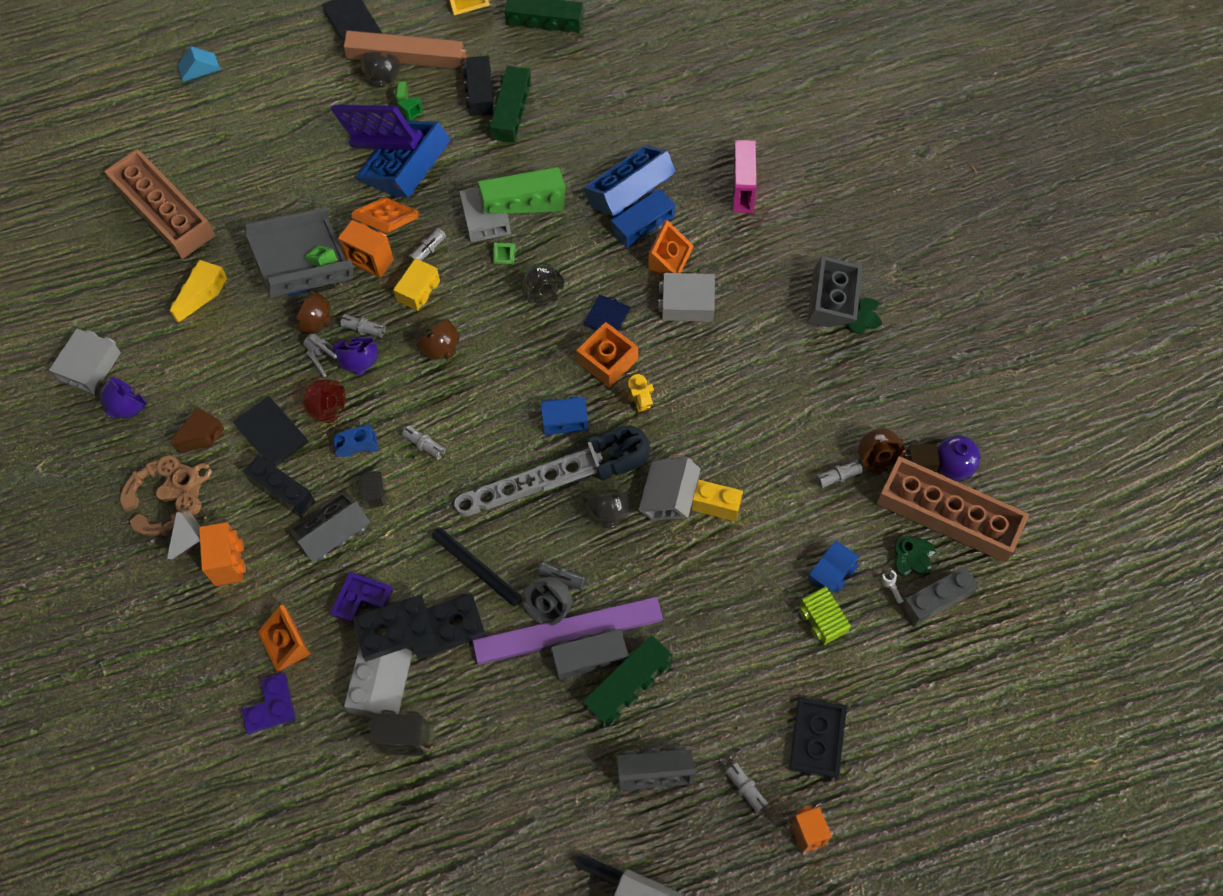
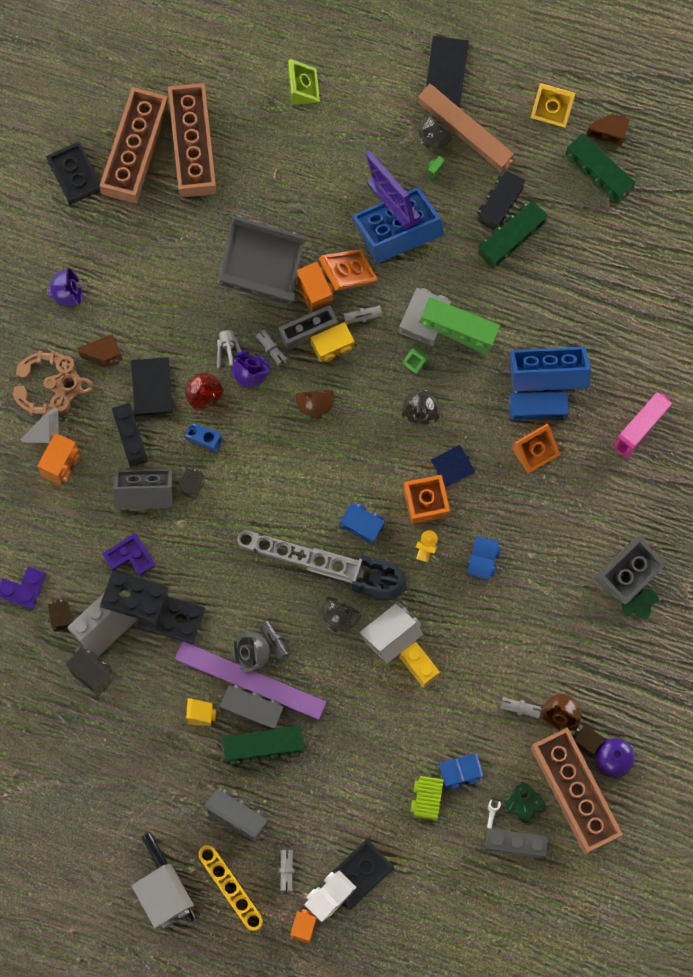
camera: 30 degrees right, 10 degrees up
(63, 301) = (74, 173): none -> black tile
(85, 361) = (60, 237): light grey brick -> none
(105, 240) = (134, 145): none -> nougat brick
(197, 63) = (301, 26): dark azure slope -> none
(201, 287) = (178, 233): yellow slope -> none
(230, 103) = (303, 83): none -> lime slope
(283, 639) = (60, 549): orange slope -> none
(314, 314) = (241, 315): reddish brown cylinder -> none
(321, 256) = (276, 275): bright green slope -> none
(328, 702) = (59, 614): none -> dark brown brick
(379, 291) = (304, 328): none -> dark grey brick
(410, 108) = (433, 184): green slope -> none
(424, 442) = (250, 471): light grey pin -> none
(476, 566) = (222, 590): black axle -> none
(542, 695) = (200, 713): none -> yellow slope
(687, 297) = (520, 494): light grey brick -> none
(698, 371) = (482, 558): none -> blue brick
(719, 845) = (226, 879): none -> yellow beam
(812, 777) = (327, 900): none -> white brick

